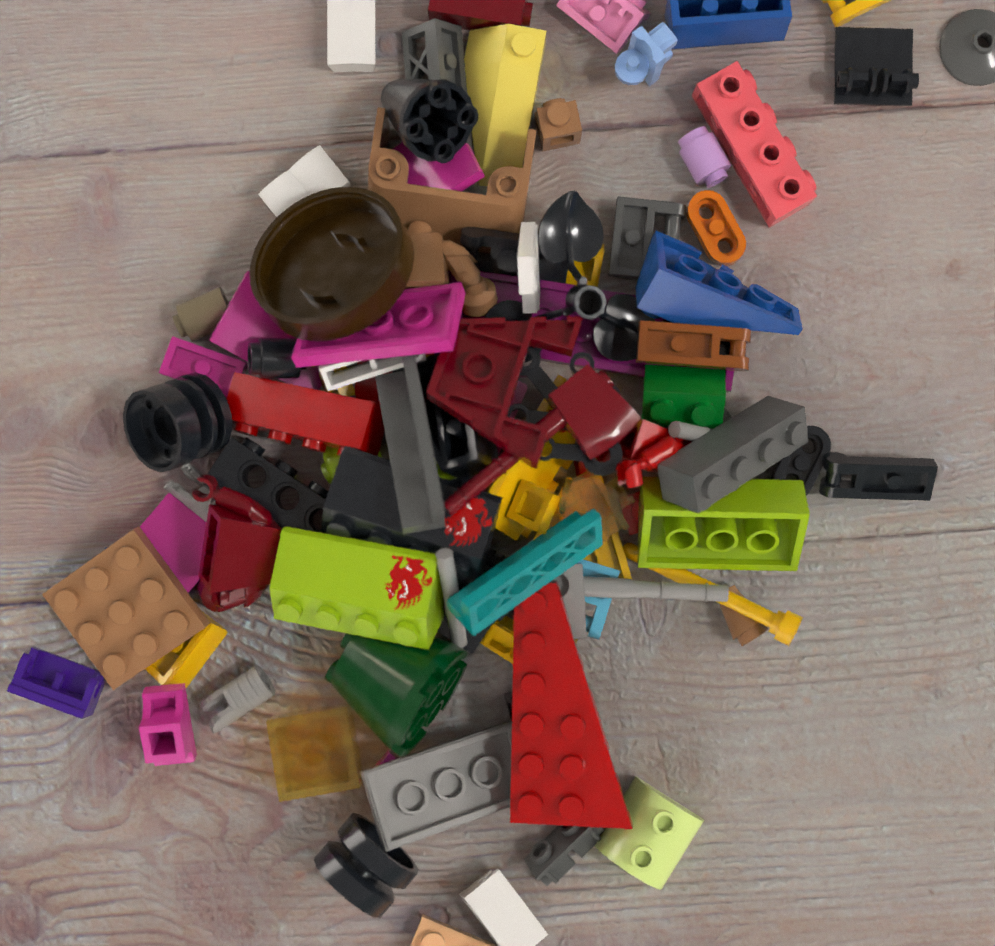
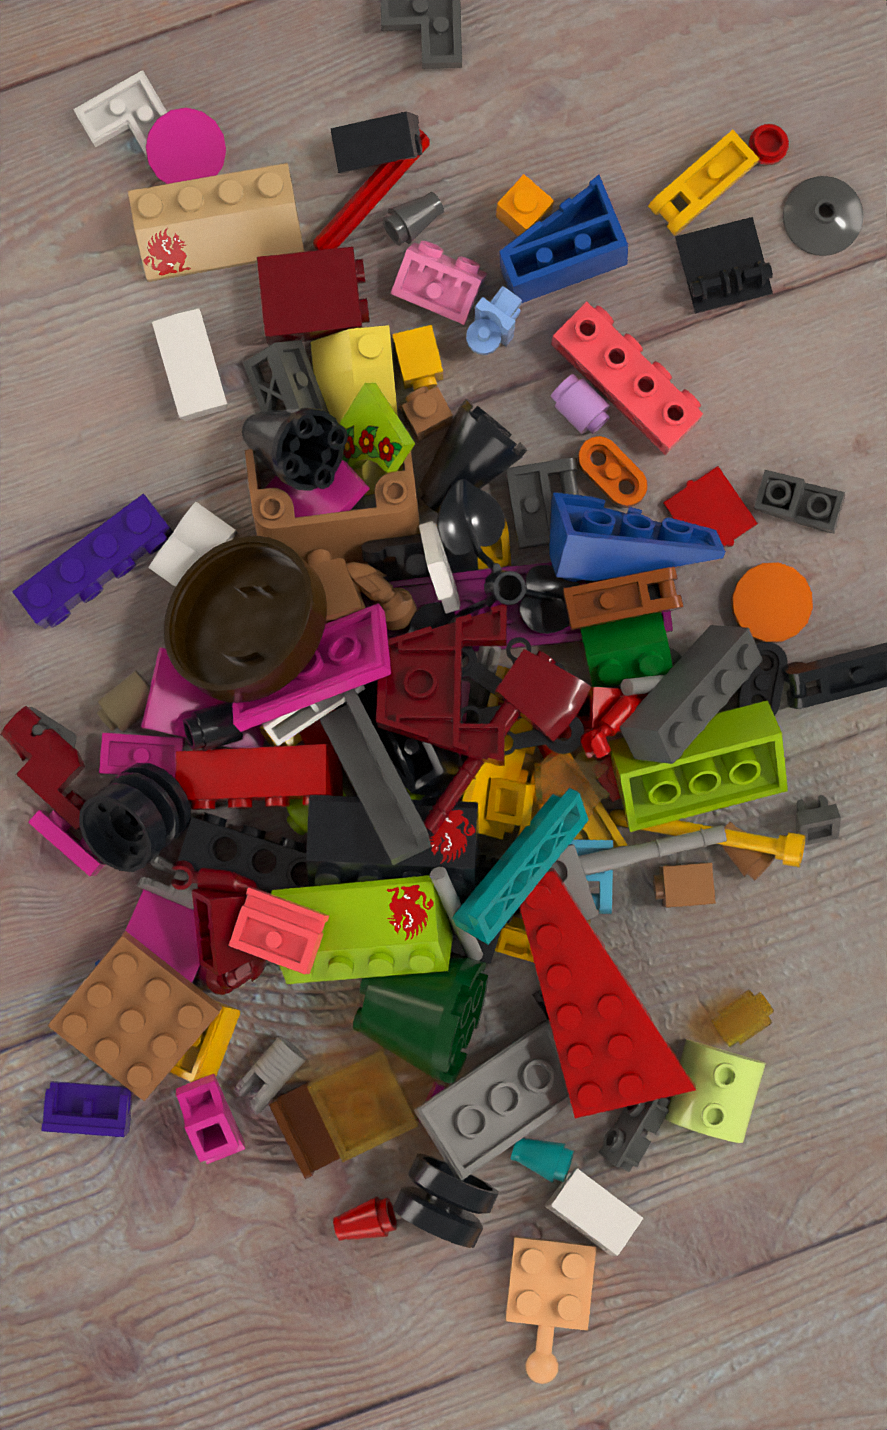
camera: 15 degrees left, 0 degrees up
(103, 415) = (57, 831): none -> dark pink plate
(117, 346) = (51, 760): none -> dark red plate
(208, 176) = (93, 562): none -> dark purple brick
(251, 760) = (304, 1129): none -> reddish brown panel
(278, 566) = (279, 930): none -> coral plate
(288, 861) = (368, 1220): none -> red cone
(471, 850) = (544, 1158): none -> teal cone
(504, 124) = (374, 432): none -> lime tile
(552, 366) = (488, 657): none -> light grey axle
(565, 70) = (418, 358): none -> yellow brick
(591, 168) = (471, 450): none -> black cone
(675, 632) = (685, 885): none -> medium nougat brick
(695, 772) = (743, 1018): none -> clear yellow brick
(800, 284) = (713, 505): none -> red piece
(817, 610) = (818, 823): none -> flat silver tile
(831, 390) = (772, 602): none -> orange tile
(882, 305) = (799, 501): none -> dark grey slope

